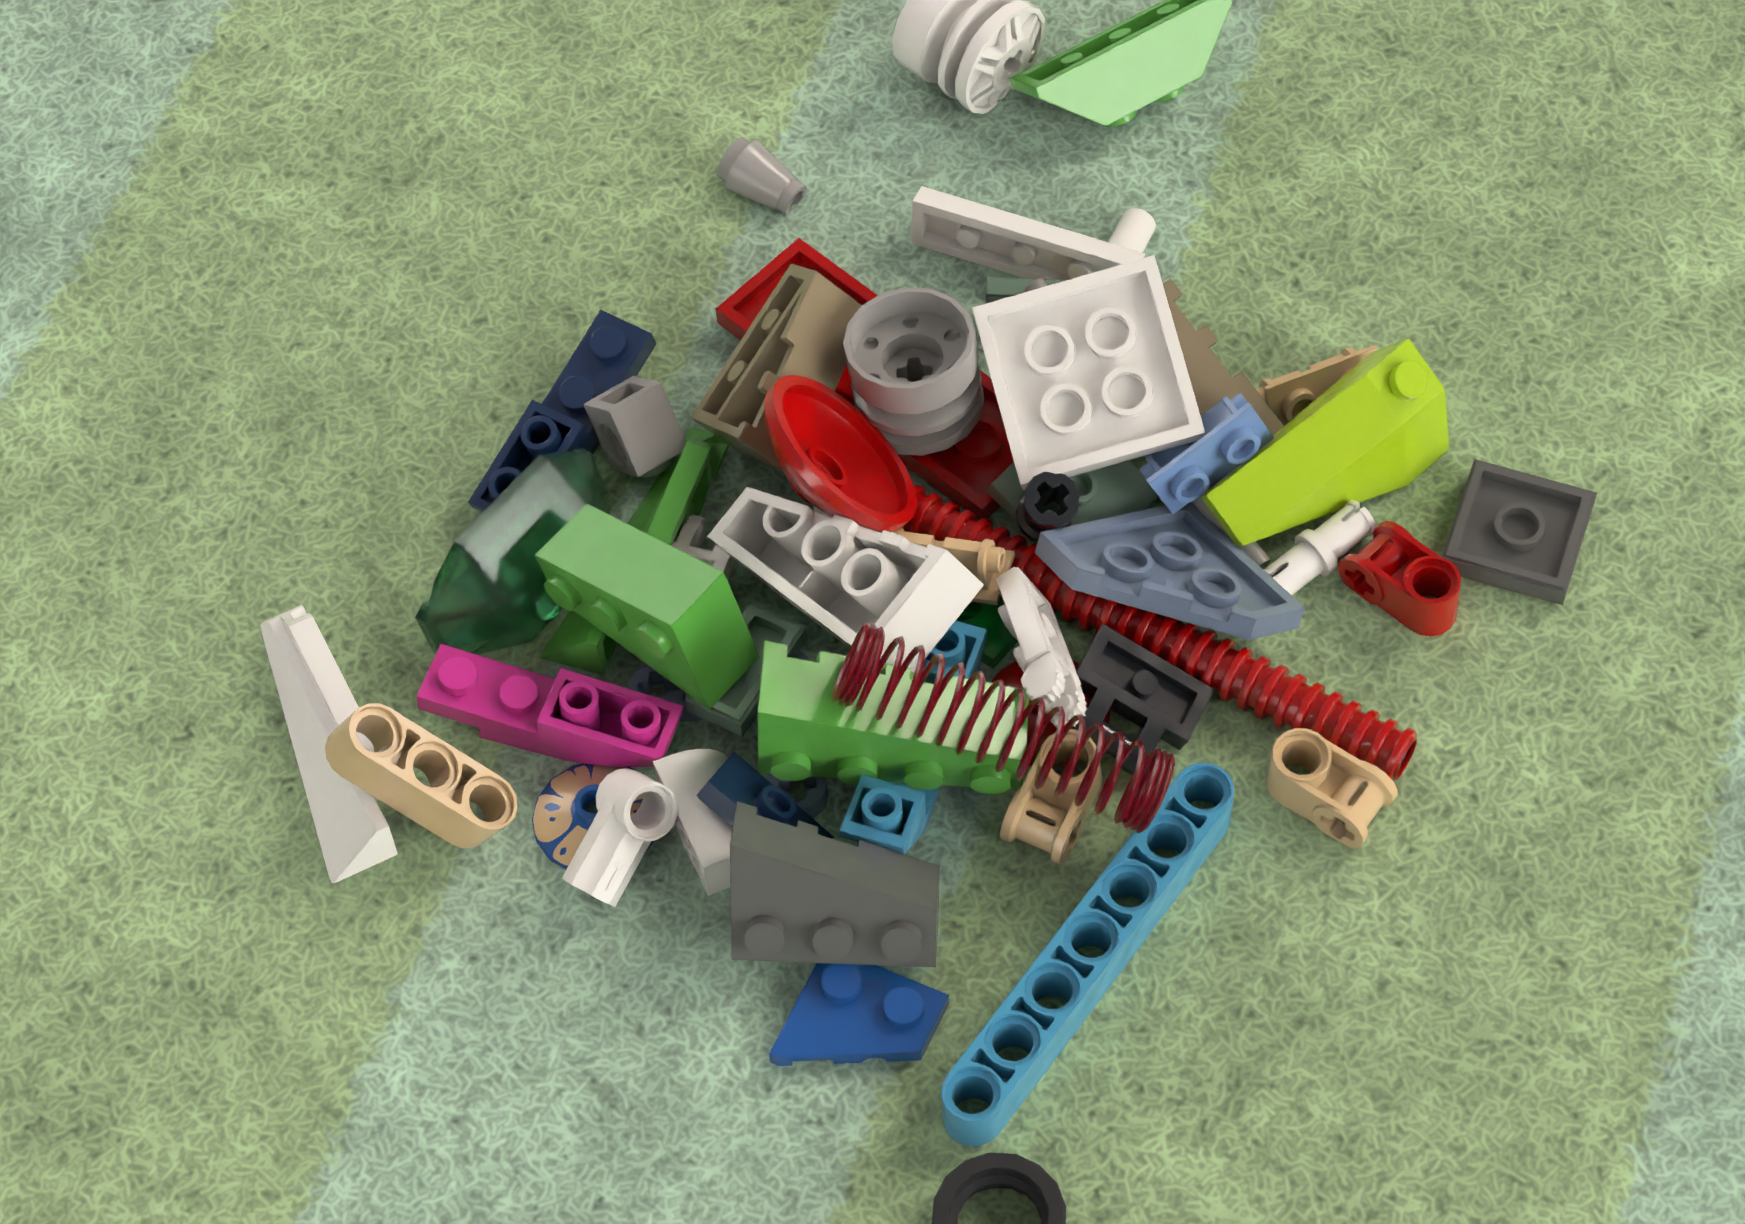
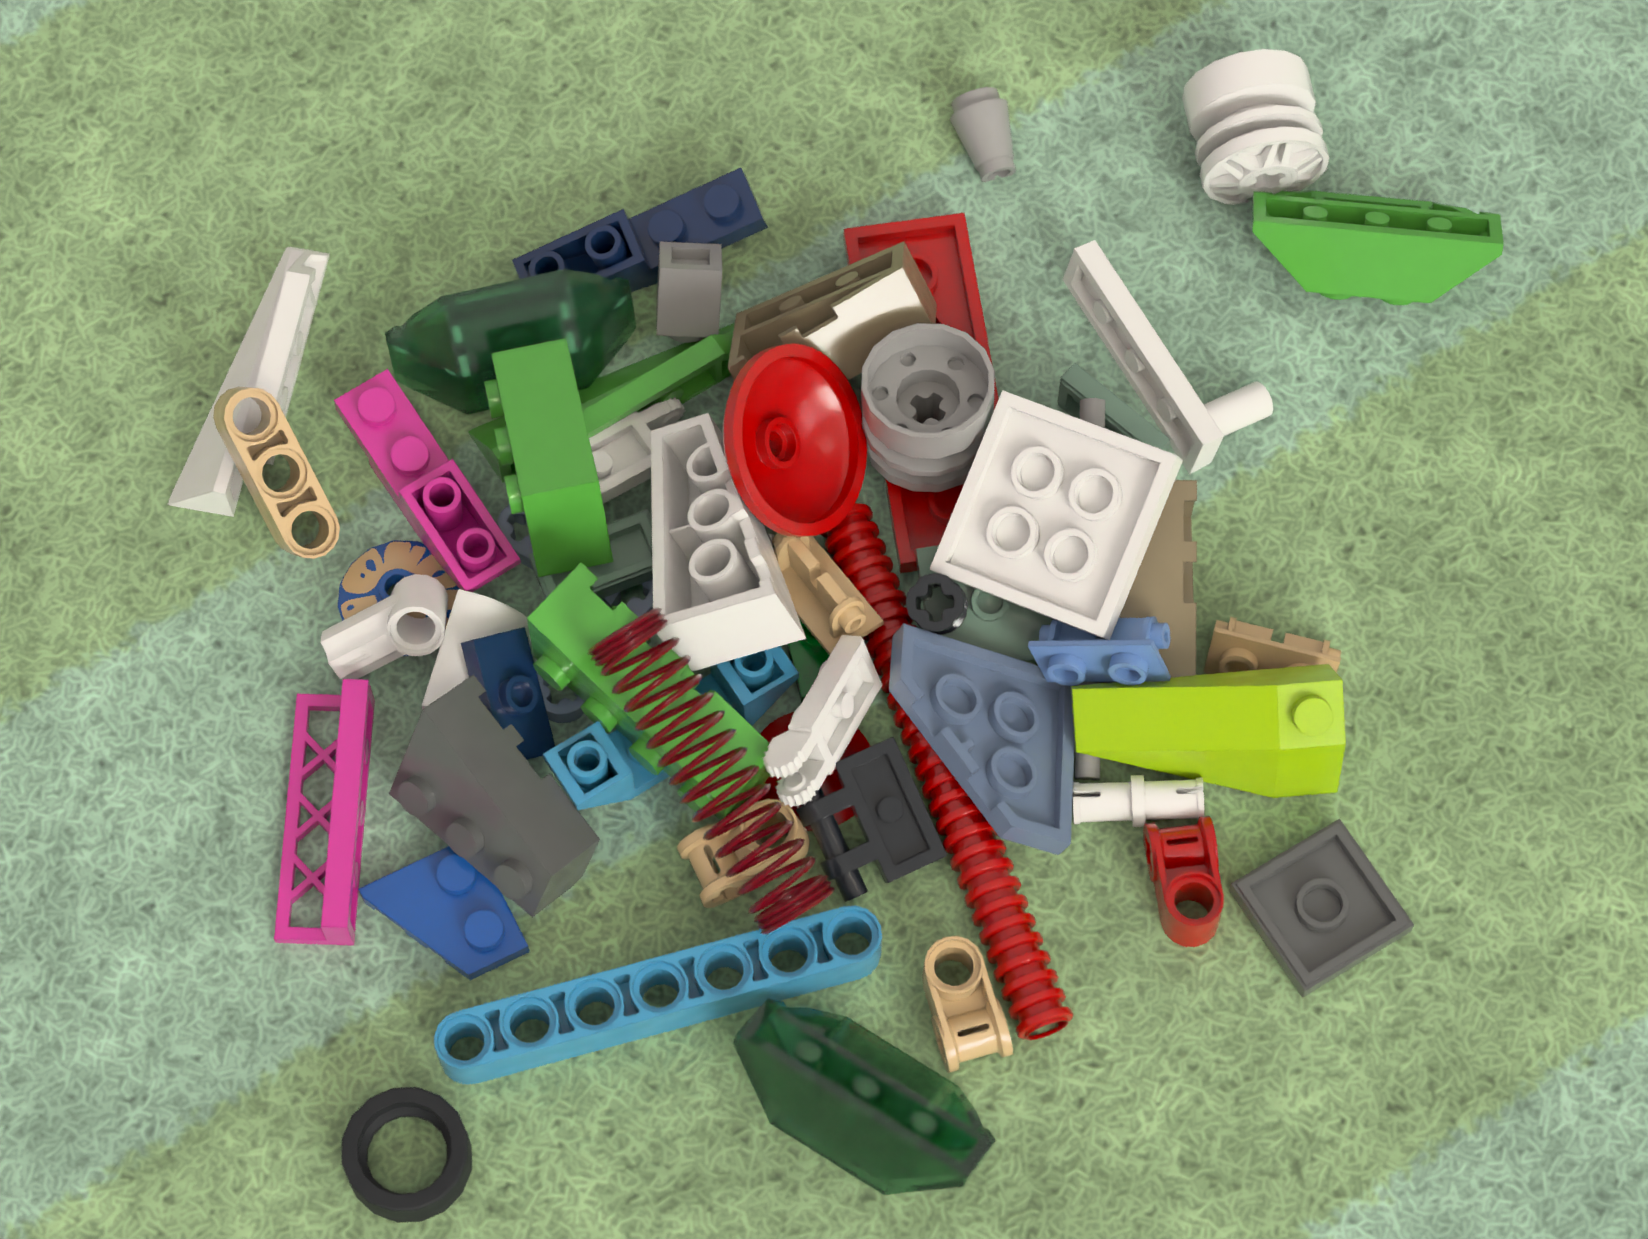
camera: 35 degrees right, 10 degrees up
(709, 1000) = (346, 819): none -> dark pink fence
(1328, 911) = (860, 1100): none -> clear green wedge

